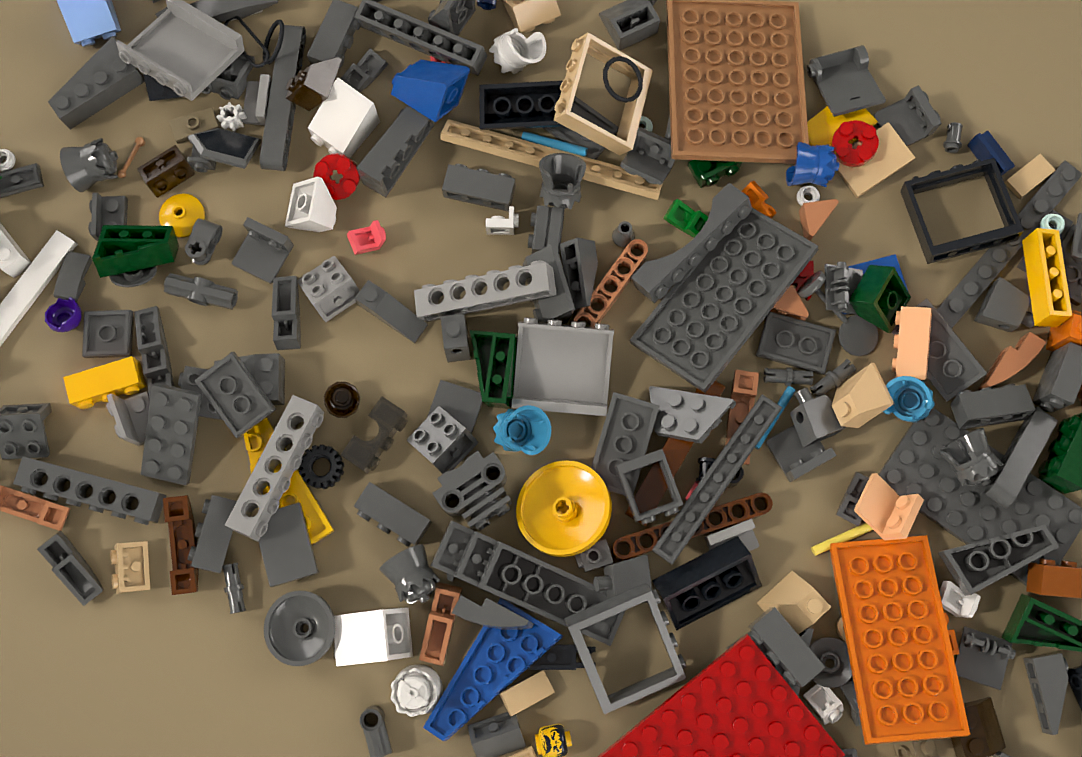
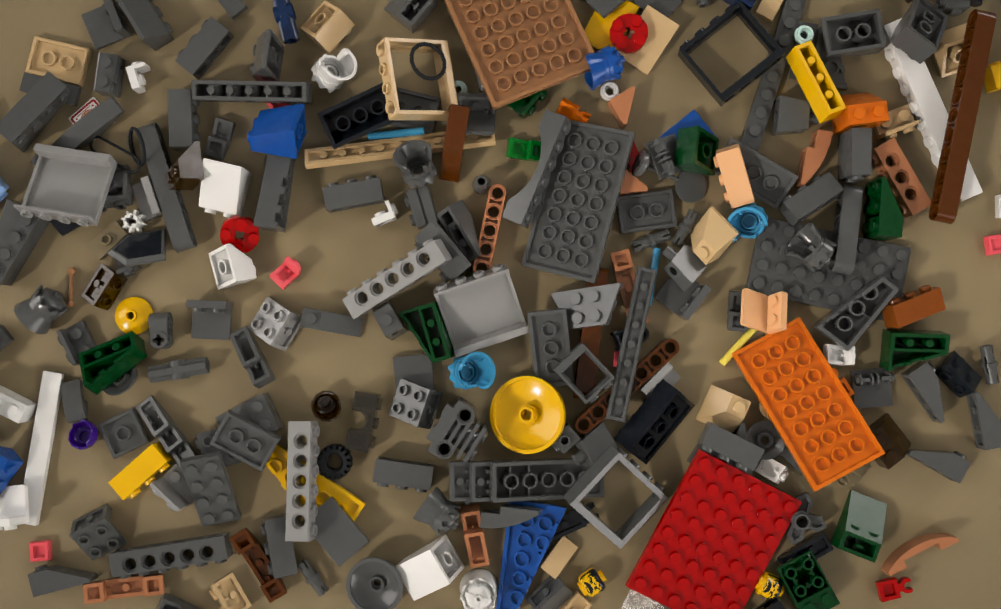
camera: 25 degrees left, 10 degrees up
(612, 177) = (454, 142): none -> reddish brown slope

